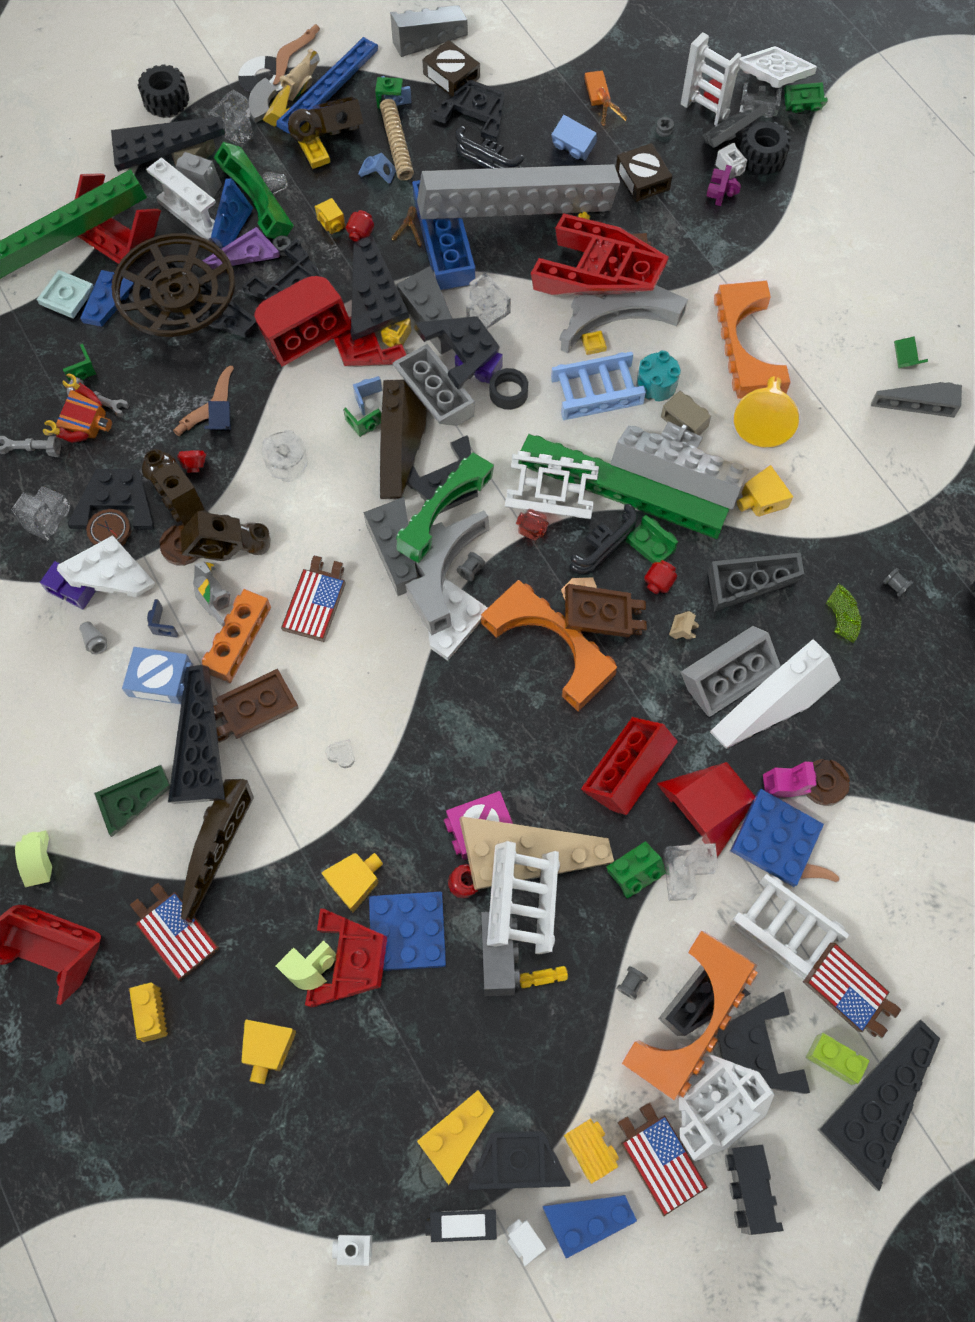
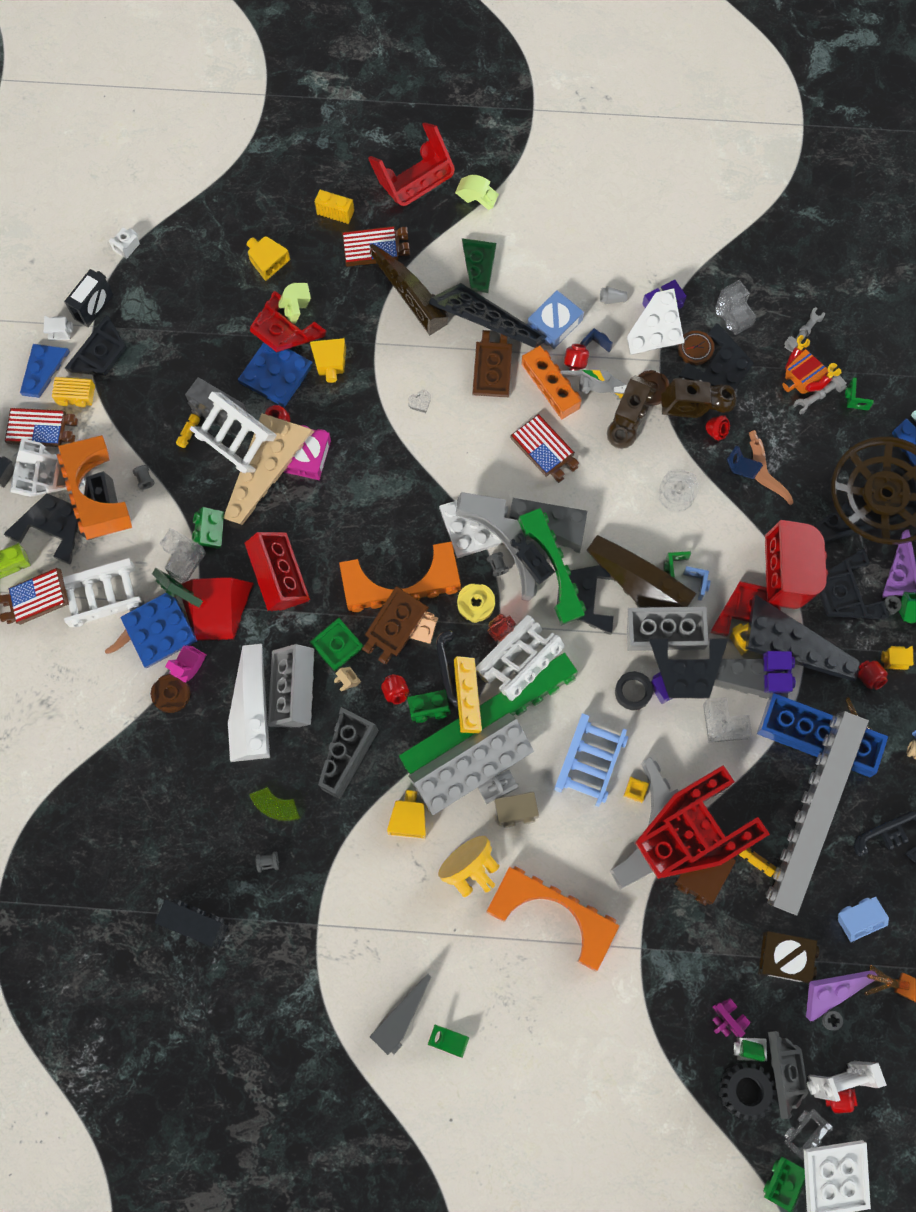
camera: 125 degrees right, 5 degrees up
(192, 625) = (576, 357): none -> red head
(421, 270) = (779, 662): none -> dark purple piece
(450, 525) = (532, 559): none -> black plate
(455, 1135) = (141, 329): yellow wing -> none
(534, 559) = (476, 592): none -> light yellow plate
(622, 504) = (467, 695): none -> yellow plate
(640, 130) = (830, 992): none -> medium lavender wing
(658, 375) = (566, 812): teal brick -> none
(658, 658) = (336, 644): none -> green plate
(733, 832) = (175, 588): none -> dark green wing
(737, 149) = (752, 1050): none -> green slope

